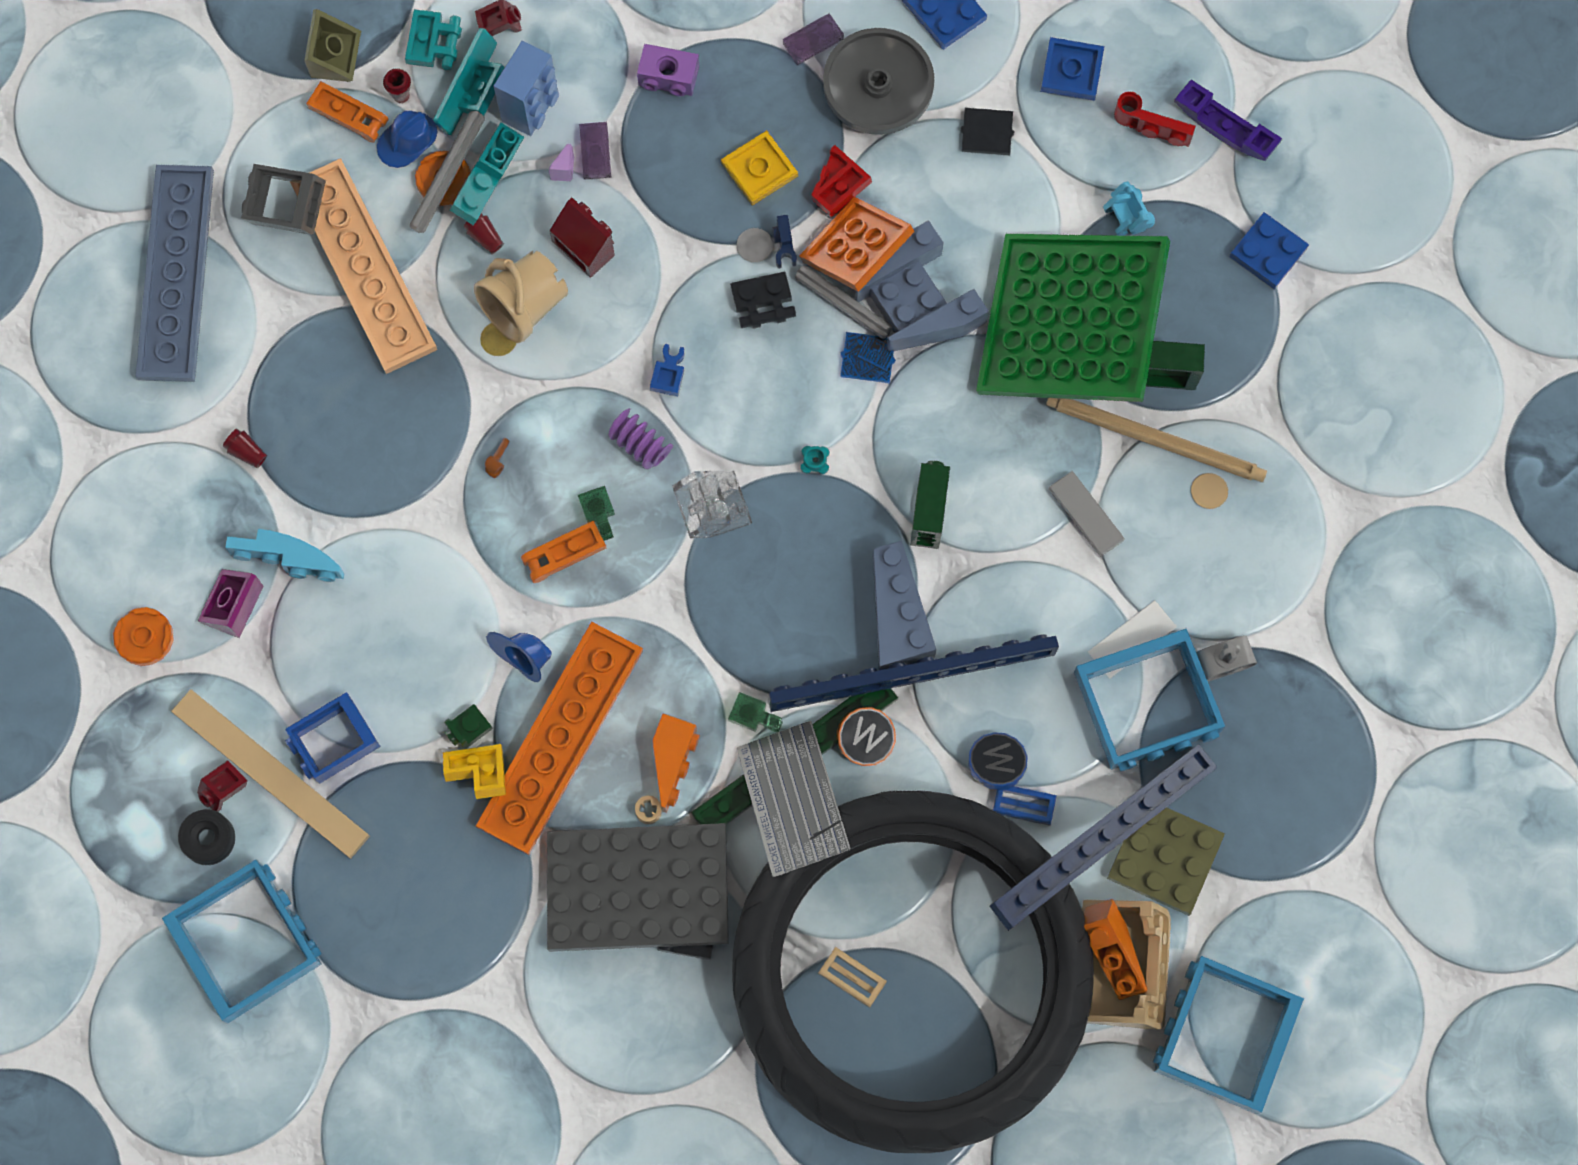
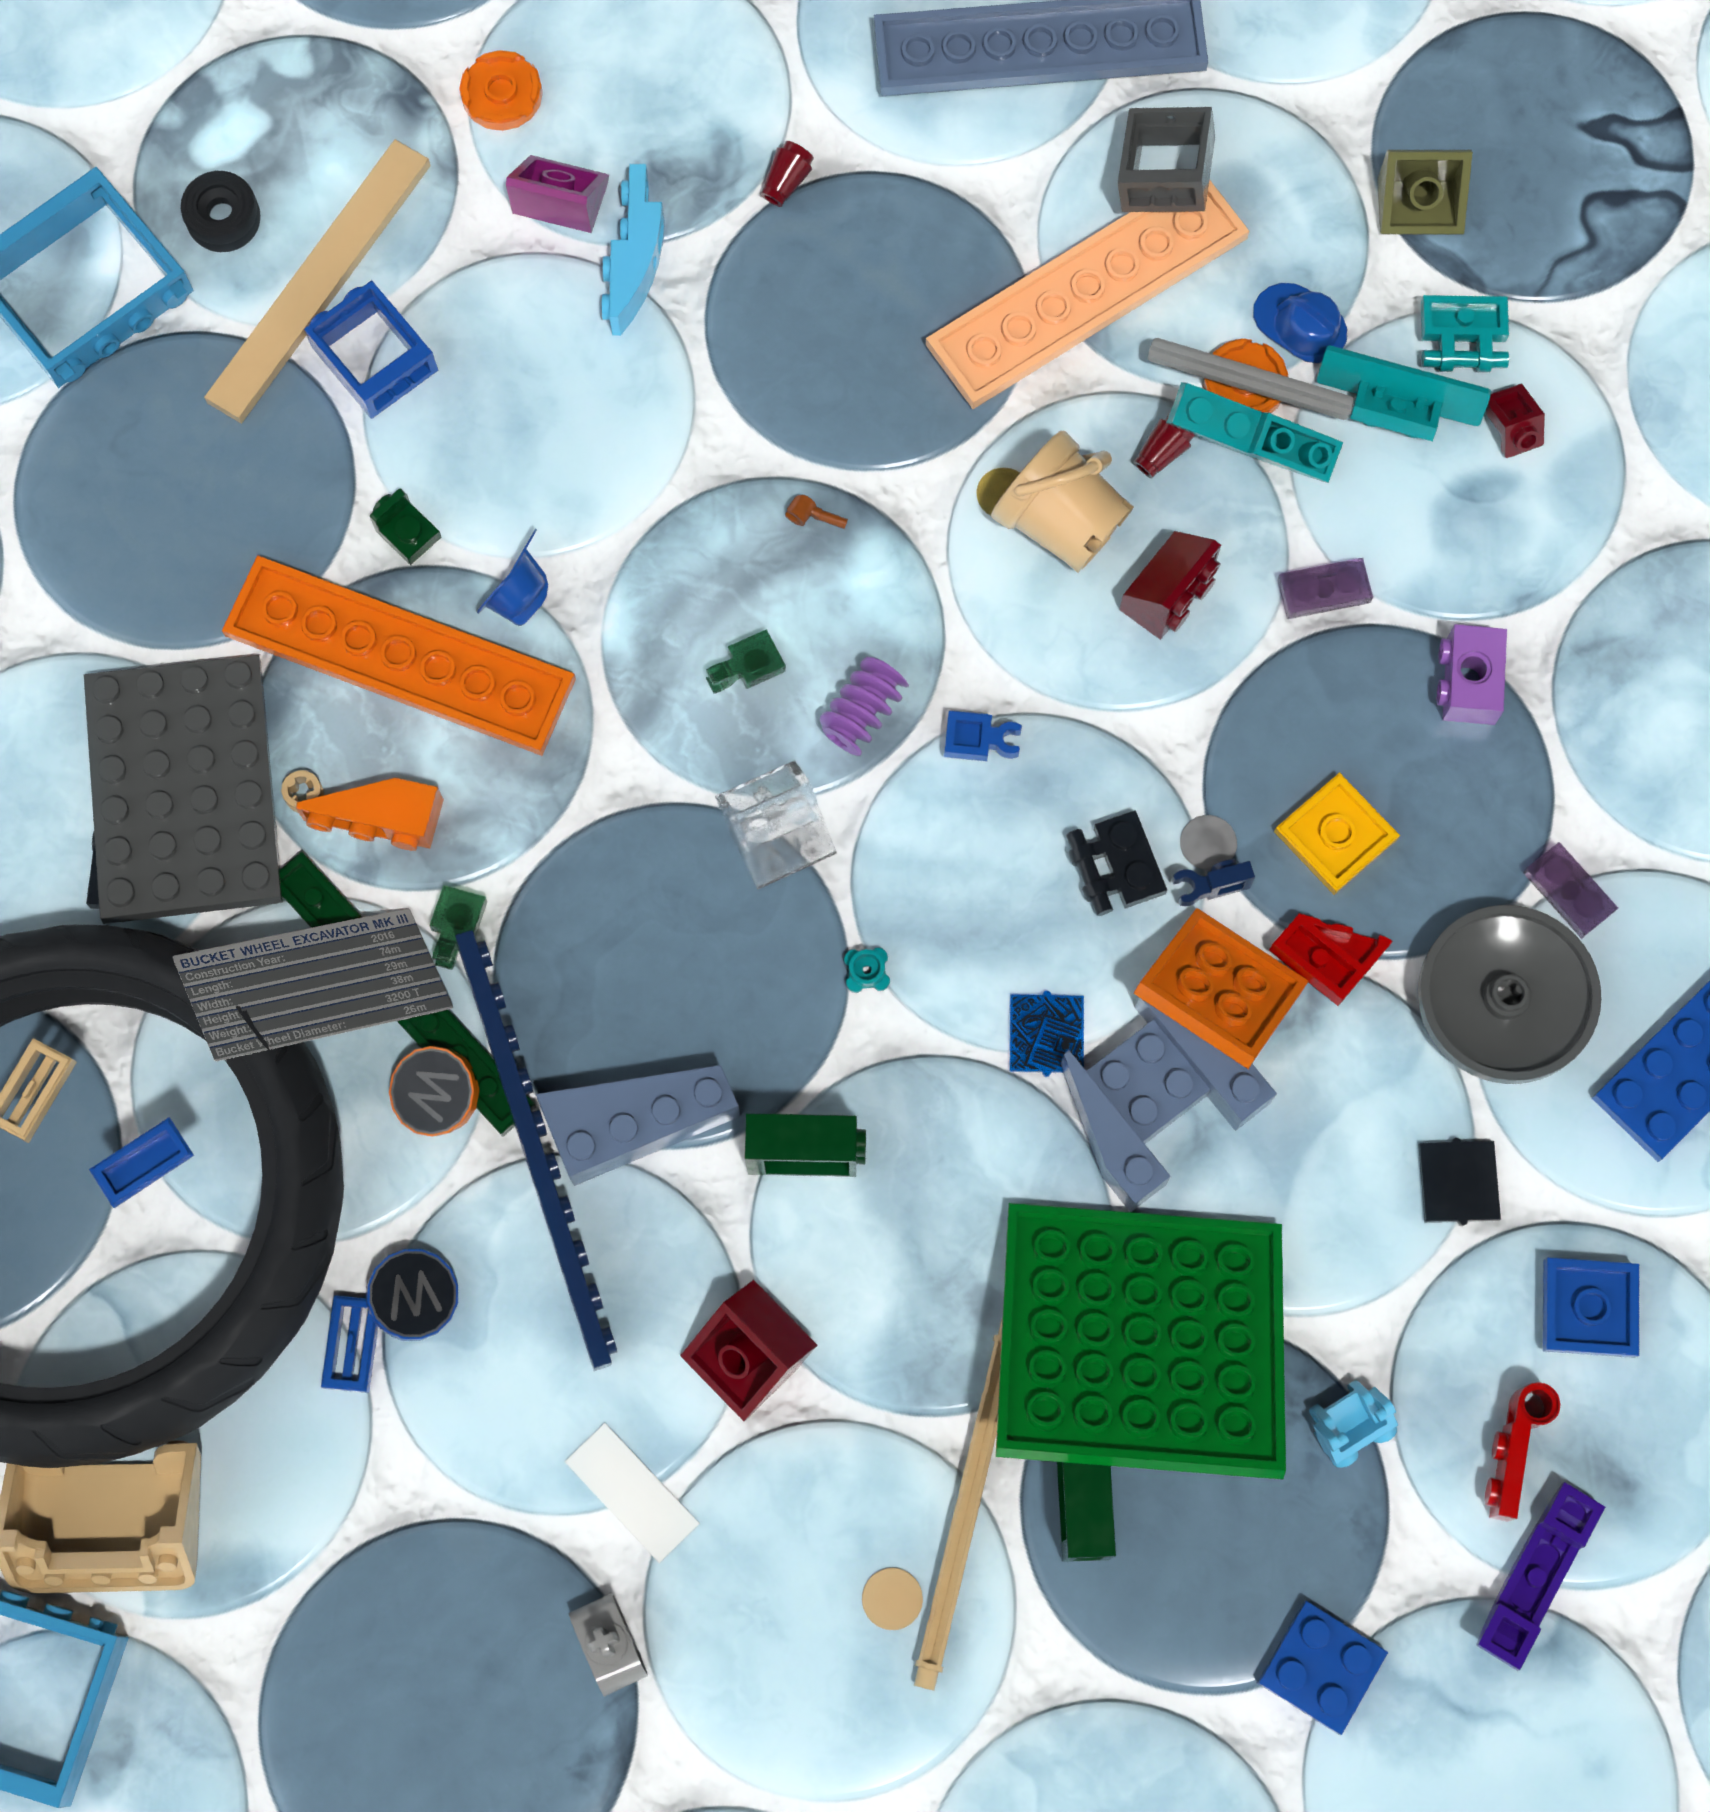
camera: 85 degrees right, 0 degrees up
(220, 786) = (294, 217): dark red bracket -> none
(346, 111) = (1327, 230): orange plate -> none
(397, 84) = (1376, 288): dark red cone -> none
(482, 764) = (345, 553): yellow plate -> none
(526, 88) = (1395, 462): medium blue brick -> none
(563, 165) = (1291, 543): lavender slope -> none
(564, 551) = (680, 624): orange plate -> none
(843, 302) = (1122, 998): light grey axle -> none
(909, 905) = (141, 1162): none -> blue tile
(1053, 555) = (748, 1349): none -> dark red slope
(1086, 513) = (828, 1399): light grey tile -> none
(1102, 837) = (278, 1458): dark blue plate -> none
(1114, 948) = (120, 1493): orange slope -> none
(1135, 654) = (448, 1541): dark azure window -> none
(1167, 859) = (284, 1574): olive plate -> none

